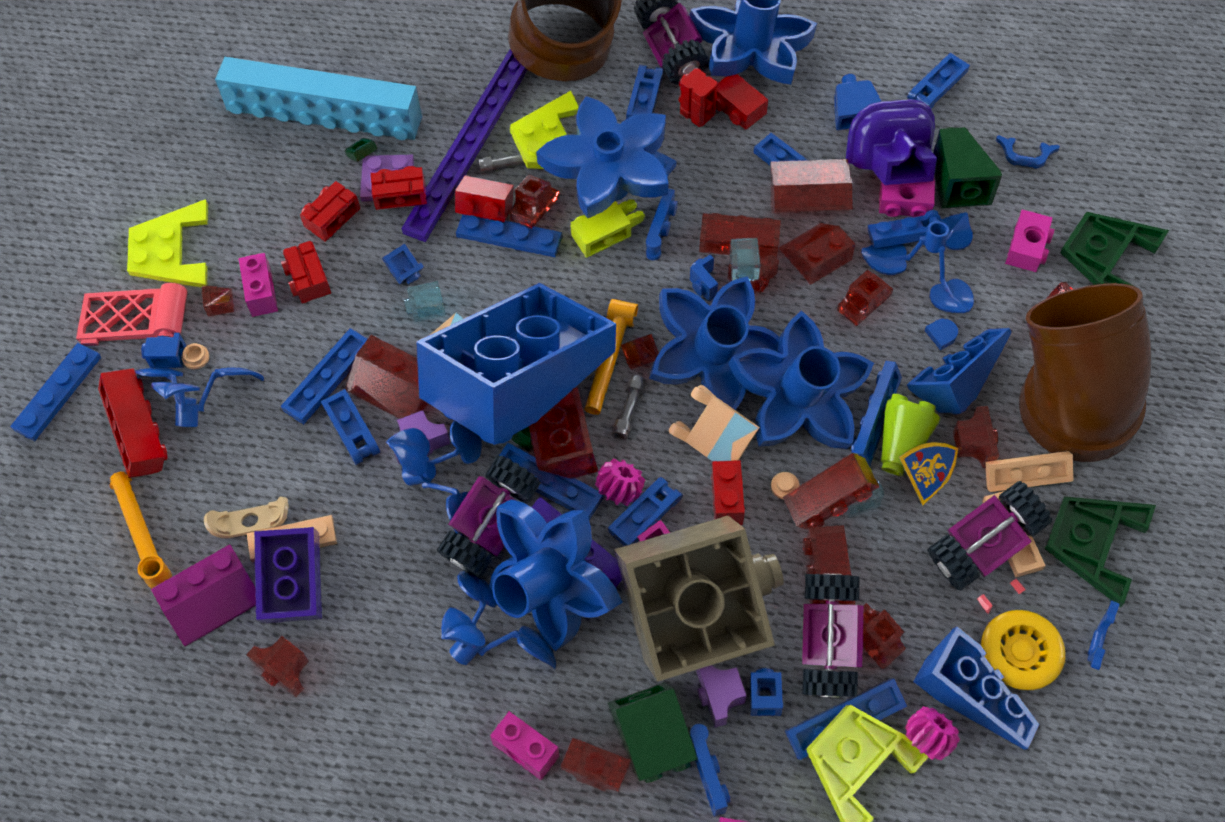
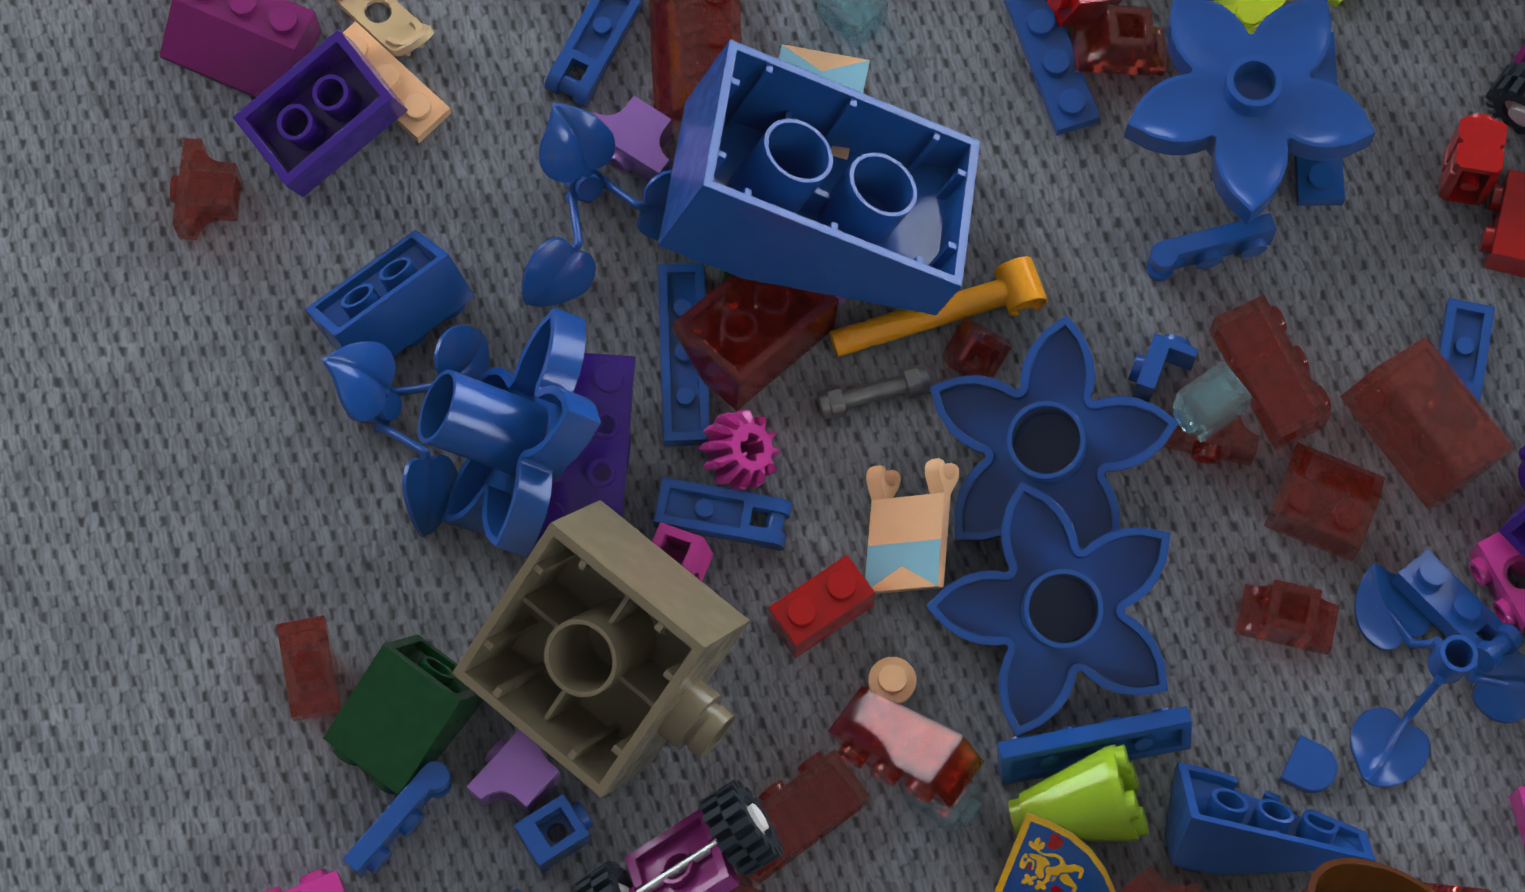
camera: 55 degrees right, 10 degrees up
(415, 605) = (394, 297): none -> blue slope
(478, 515) = (614, 314): plate -> none
(525, 745) = (284, 564): dark pink brick -> none
(605, 228) = (1149, 176): neon yellow hinge -> none
(645, 91) = (1435, 79): blue plate -> none

